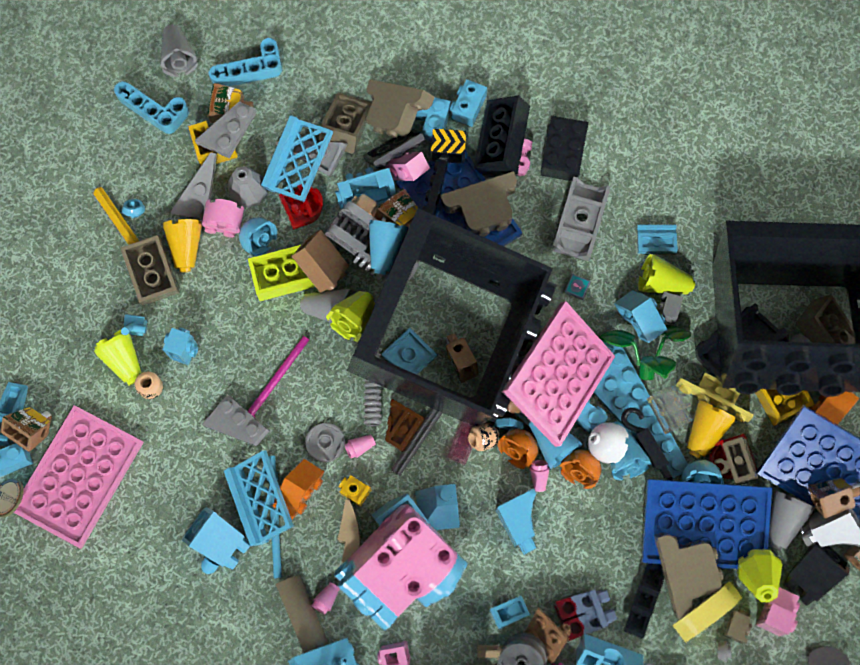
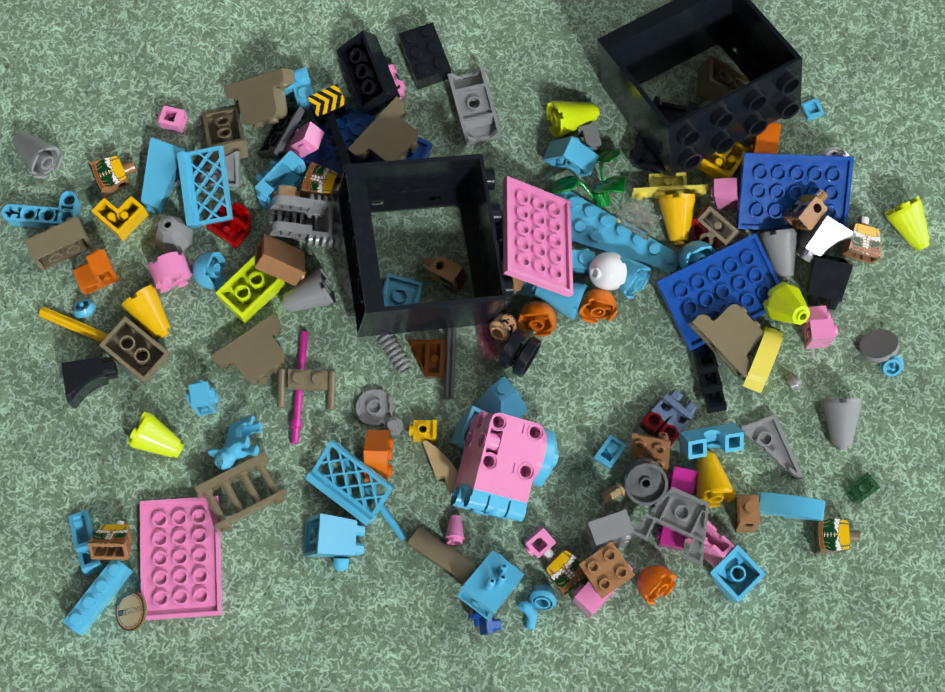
camera: 35 degrees left, 0 degrees up
(92, 269) = (85, 376): none -> black hips
(134, 325) = (150, 404): medium azure arm -> none
(142, 385) = (197, 441): light nougat head -> none
(145, 139) = (59, 243): none -> dark tan brick
(153, 431) = (224, 481): none -> dark tan fence
(161, 182) = (95, 274): none -> orange brick
(185, 404) = (237, 443): none -> medium azure animal
(198, 191) = (134, 264): light grey wing -> none
(228, 130) = (129, 195): light grey wing -> none
(236, 422) = (289, 433): light grey wing -> none
(246, 66) = (106, 134): medium azure beam -> none
(251, 331) = (254, 352): none -> dark tan brick
(266, 127) = (160, 175): none -> medium azure slope
(280, 383) = (306, 380): none -> dark tan plate
(315, 84) = (169, 113): none -> bright pink brick
(331, 469) = (394, 425): none -> light grey plate
(352, 315) = (337, 288): neon yellow cone -> none
(358, 446) = (405, 393): bright pink cone -> none
(385, 244) = (328, 214): medium azure cone -> none
(469, 102) = (321, 60): medium azure brick -> none
(482, 470) = (516, 351): none -> black wheel
(508, 423) = (517, 304): medium azure tile -> none
(518, 522) = (573, 377): medium azure hips -> none
(539, 473) = (567, 330): bright pink cone -> none
(577, 287) = (504, 163): tile -> none
(647, 443) = (638, 254): black piece -> none
(657, 239) = (545, 88): medium azure plate -> none
(738, 626) = (793, 357): dark tan brick -> none
(766, 432) = (725, 193): none -> bright pink brick

